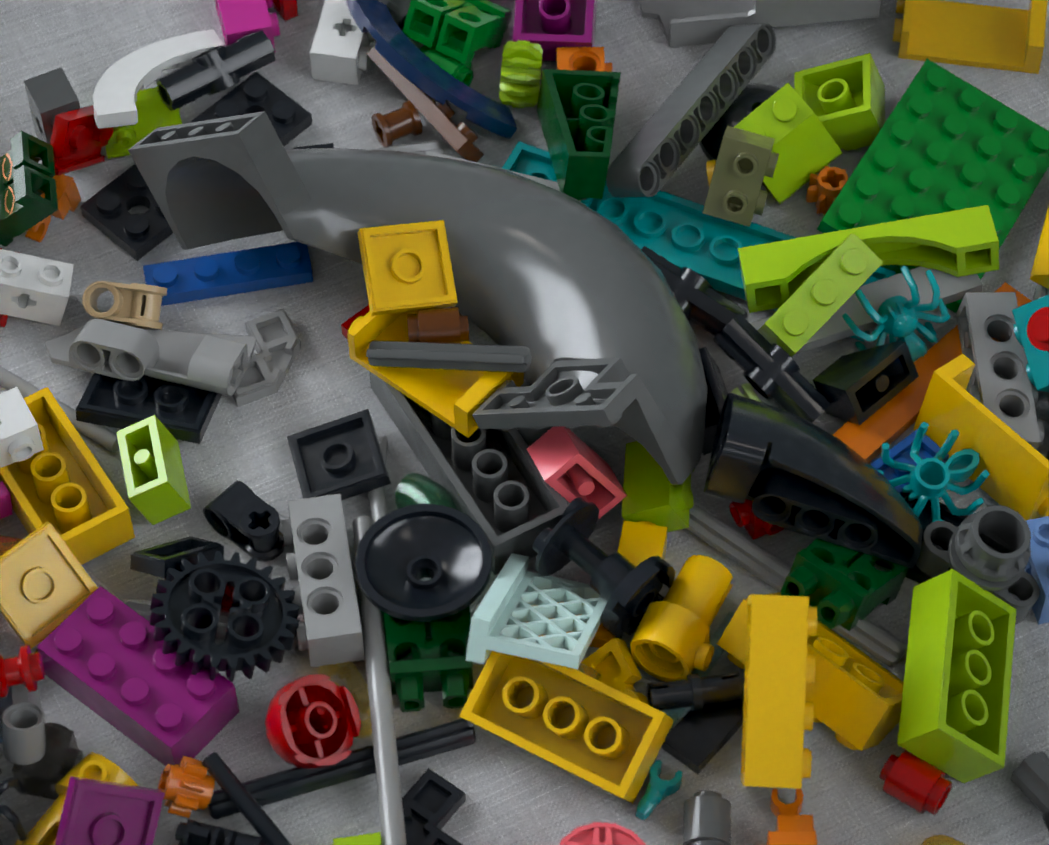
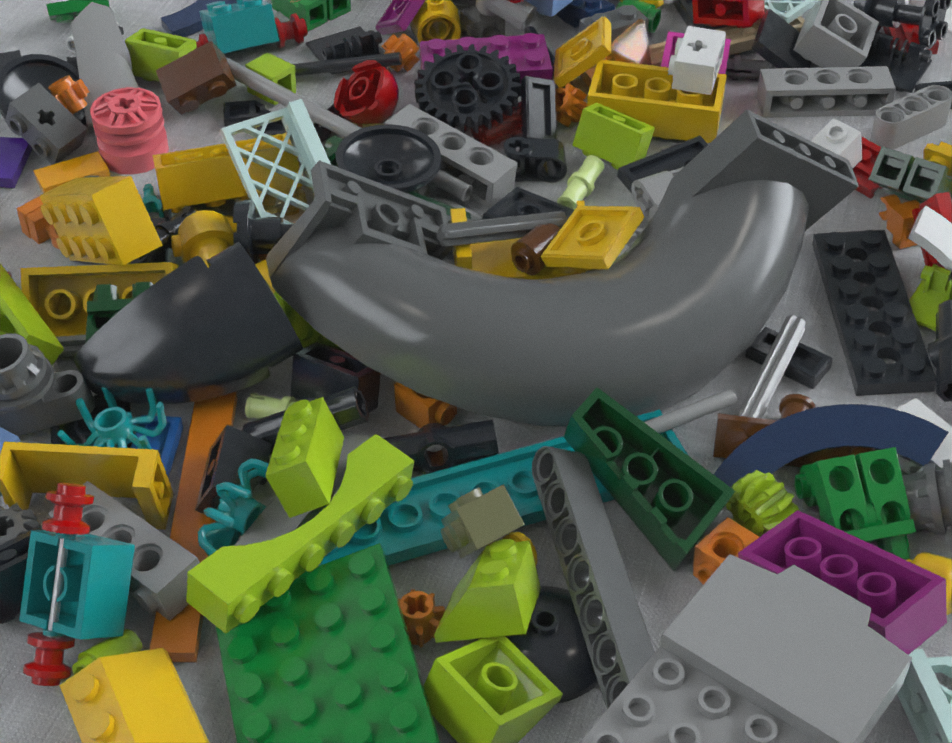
camera: 135 degrees right, 10 degrees down
(117, 557) = (569, 104): none -> orange gear
(243, 461) = (581, 182): none -> yellowish green pin

